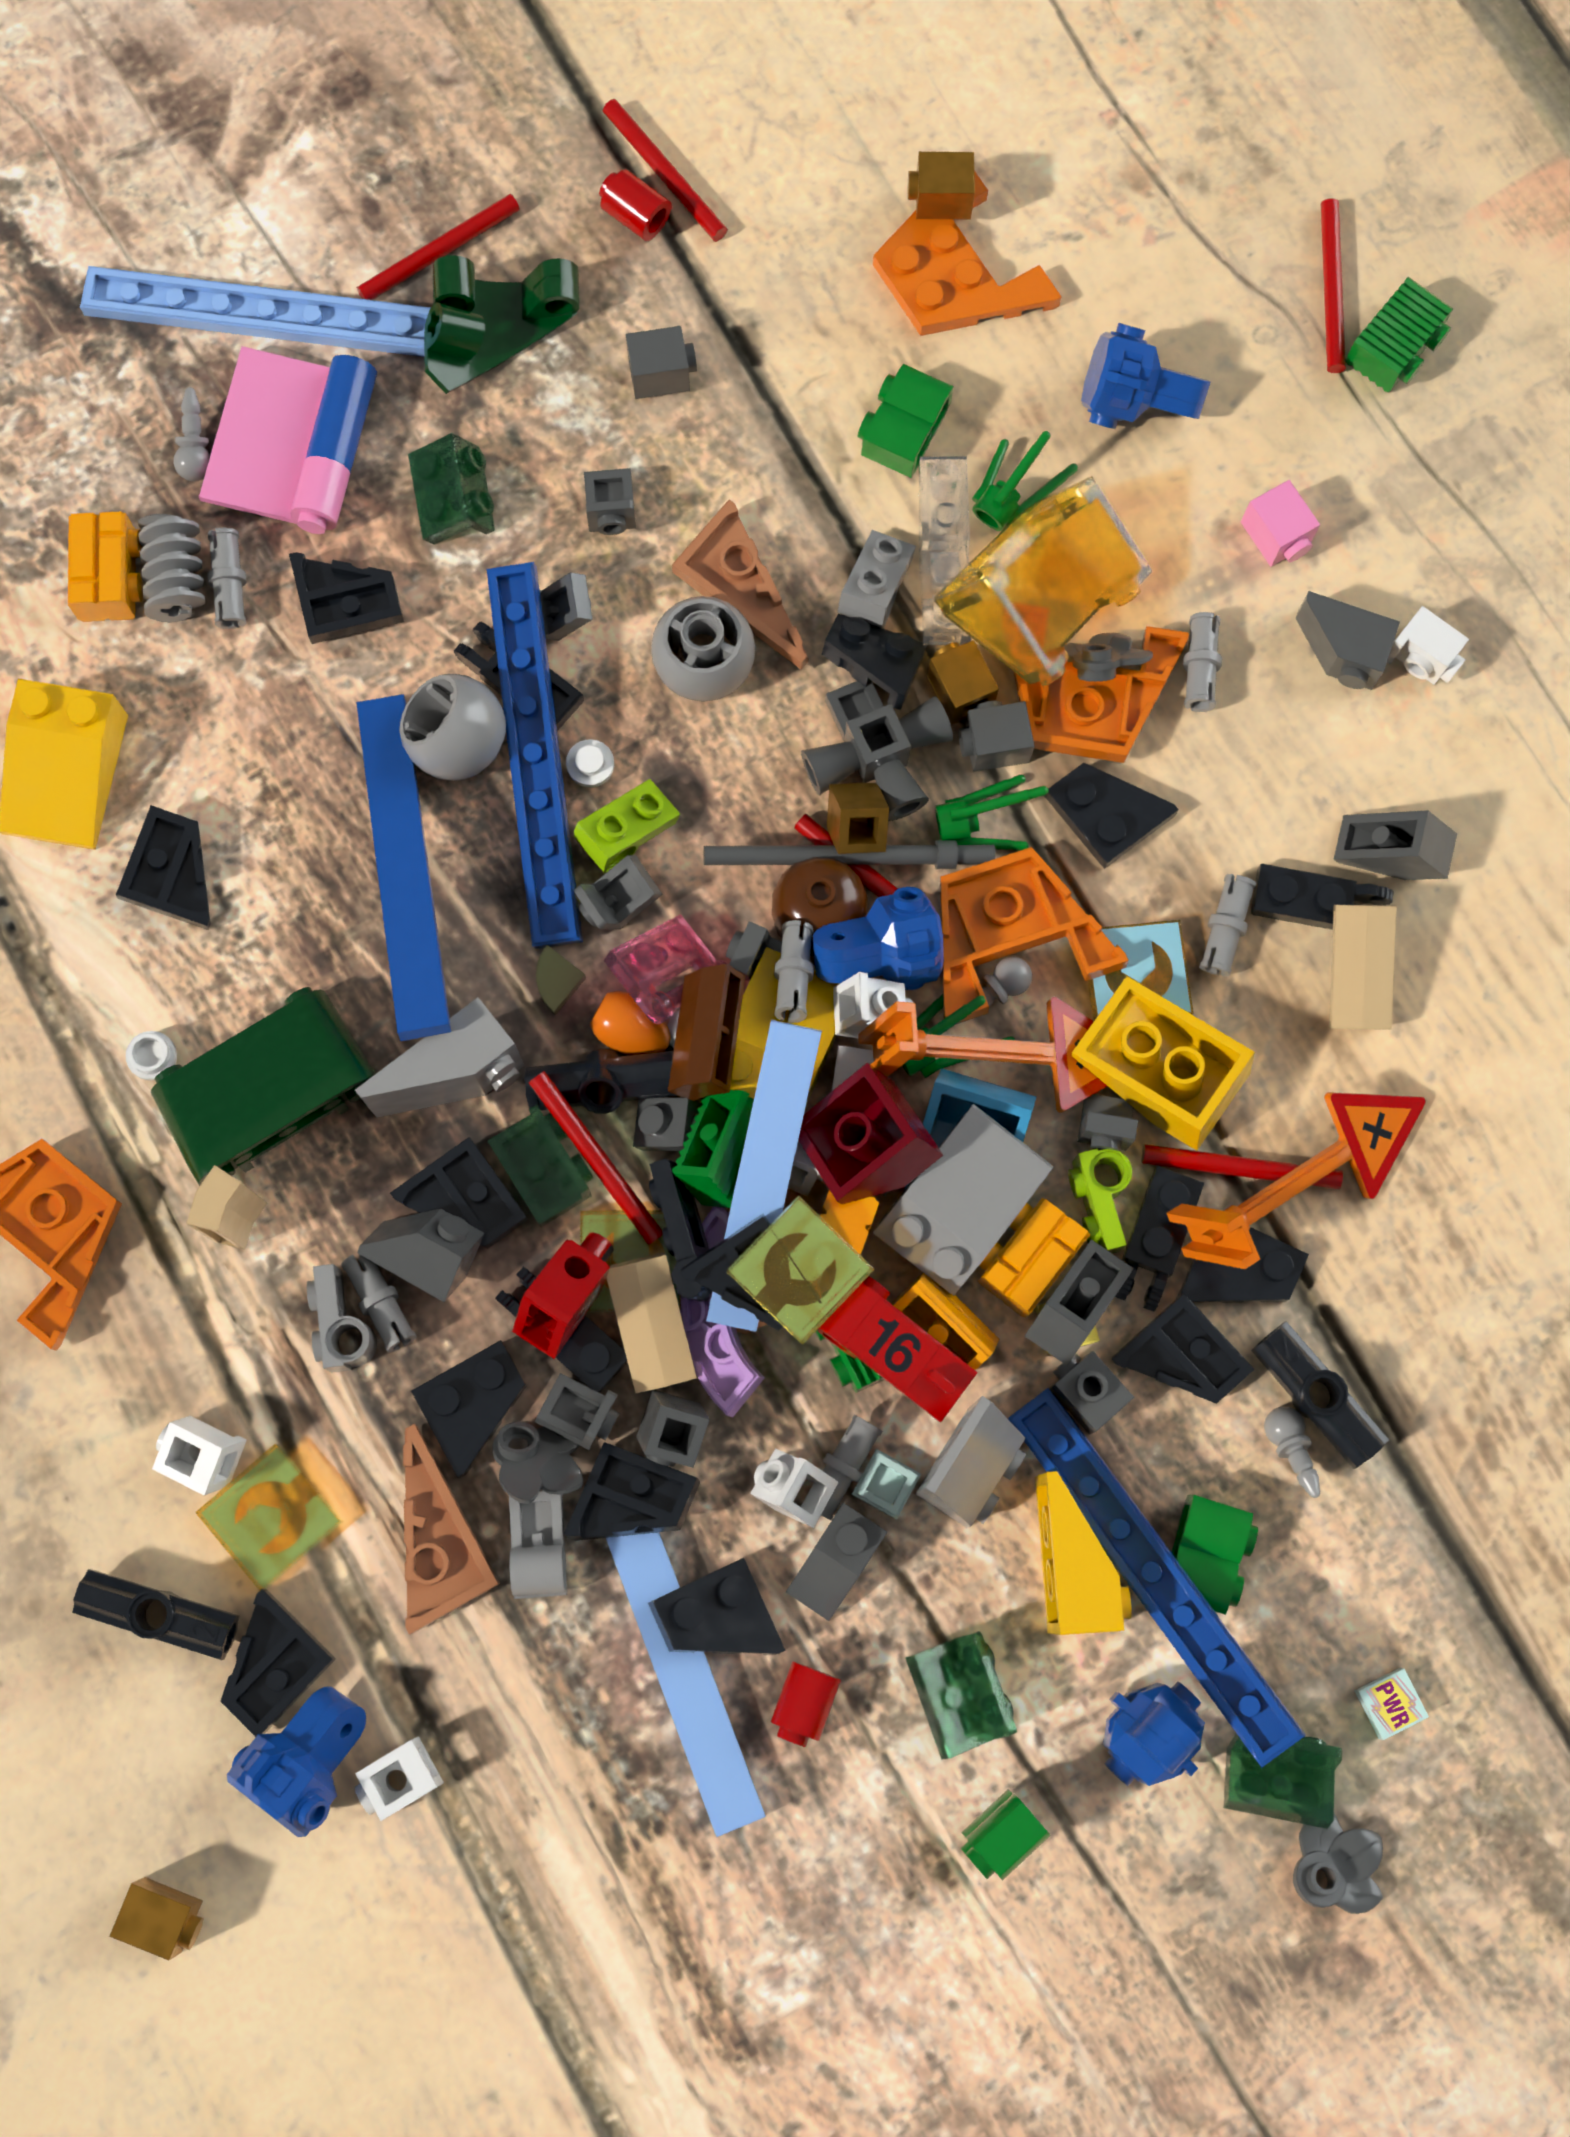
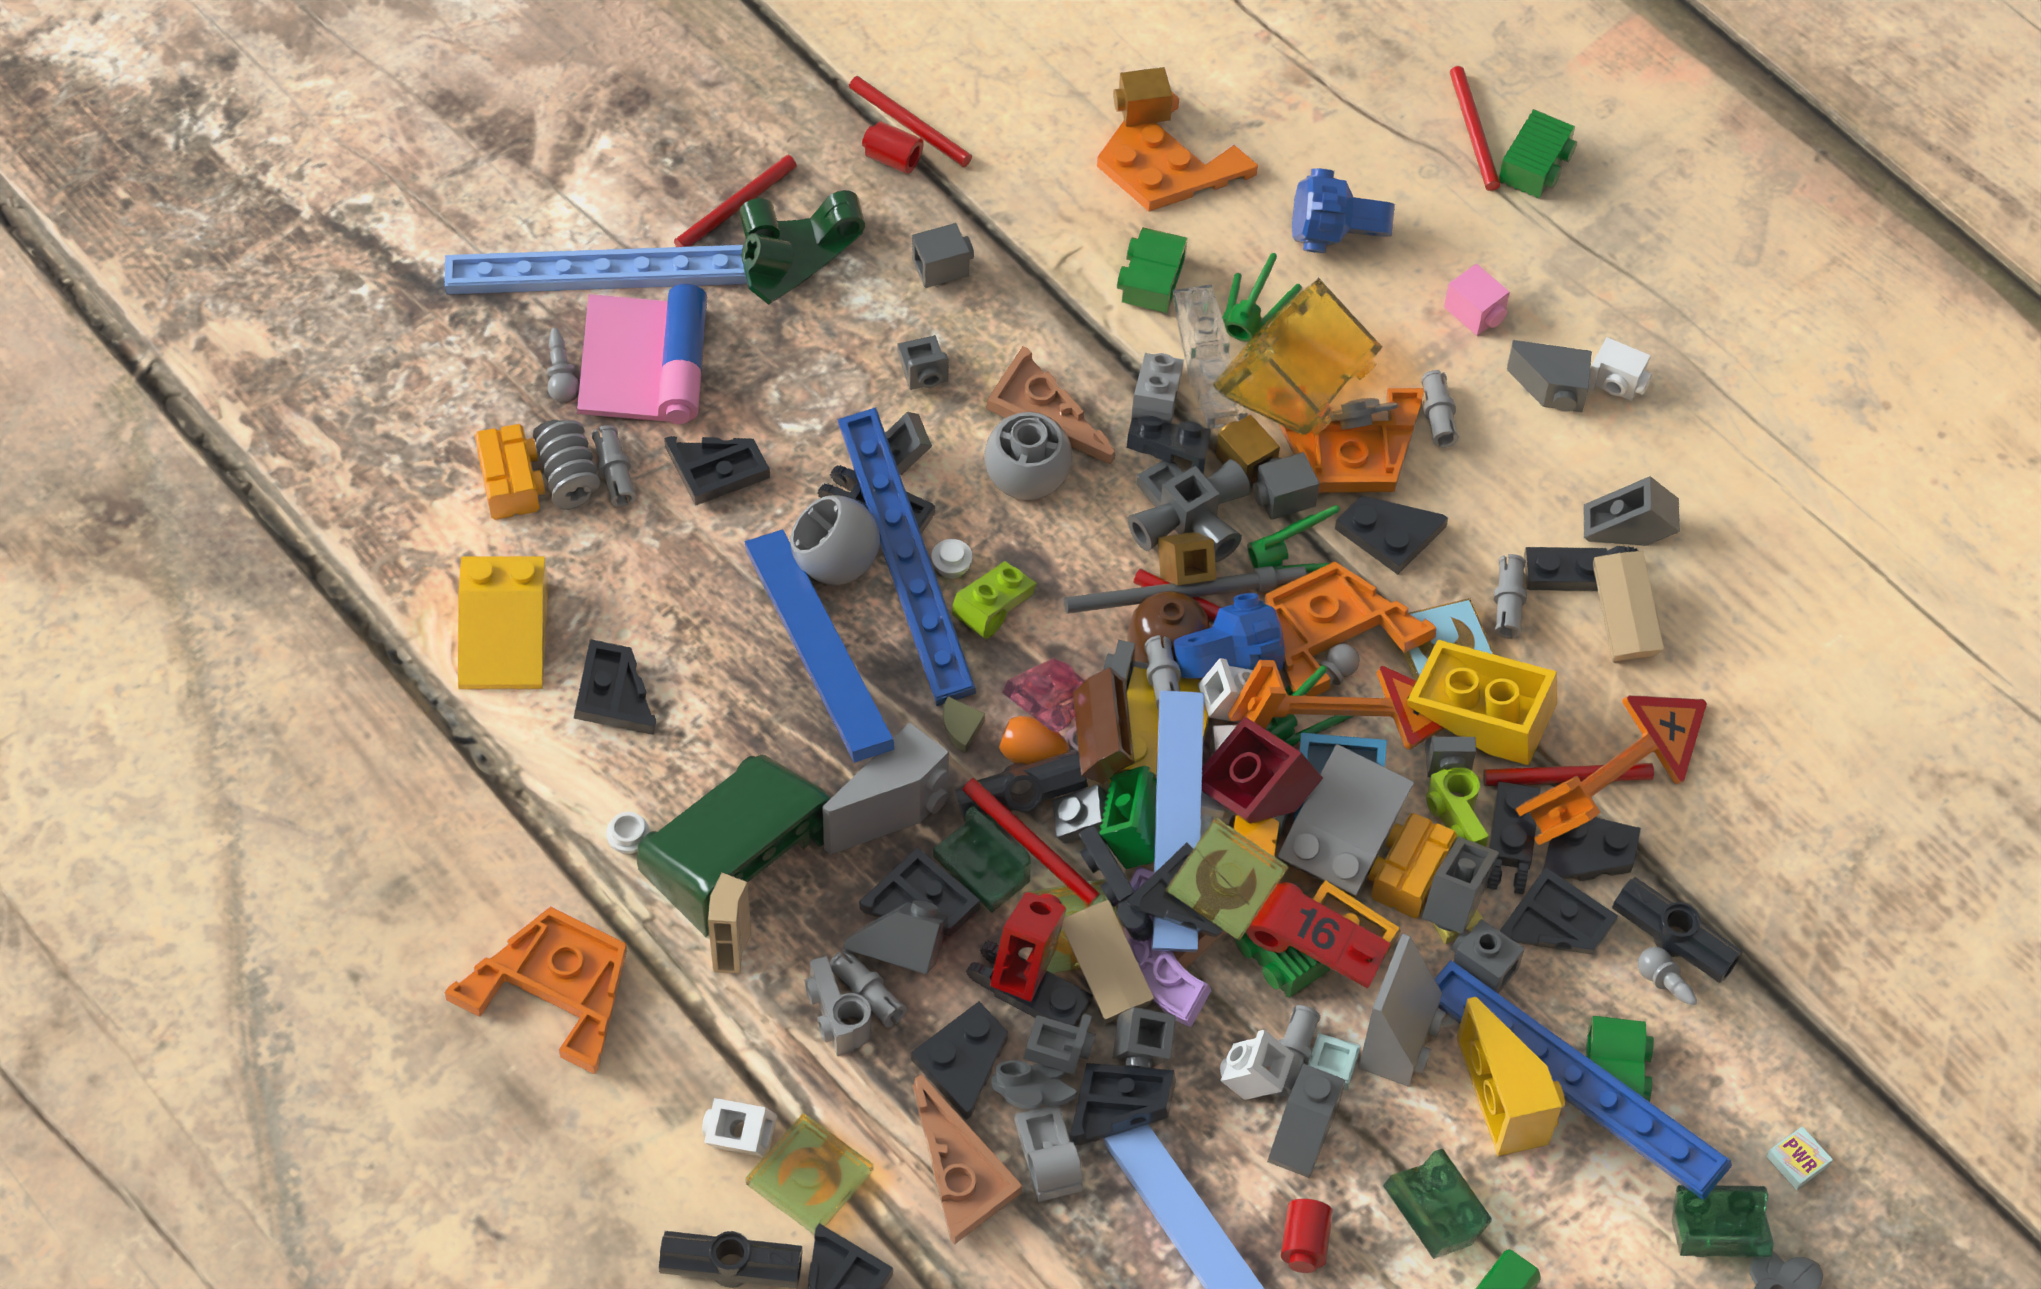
camera: 10 degrees left, 20 degrees down
(451, 488) = (787, 373): clear green bracket -> none
(618, 895) = (1000, 648): dark grey bracket -> none
(717, 1615) = (1215, 1180): black wing -> none
(1153, 1734) = (1607, 1206): blue piece -> none

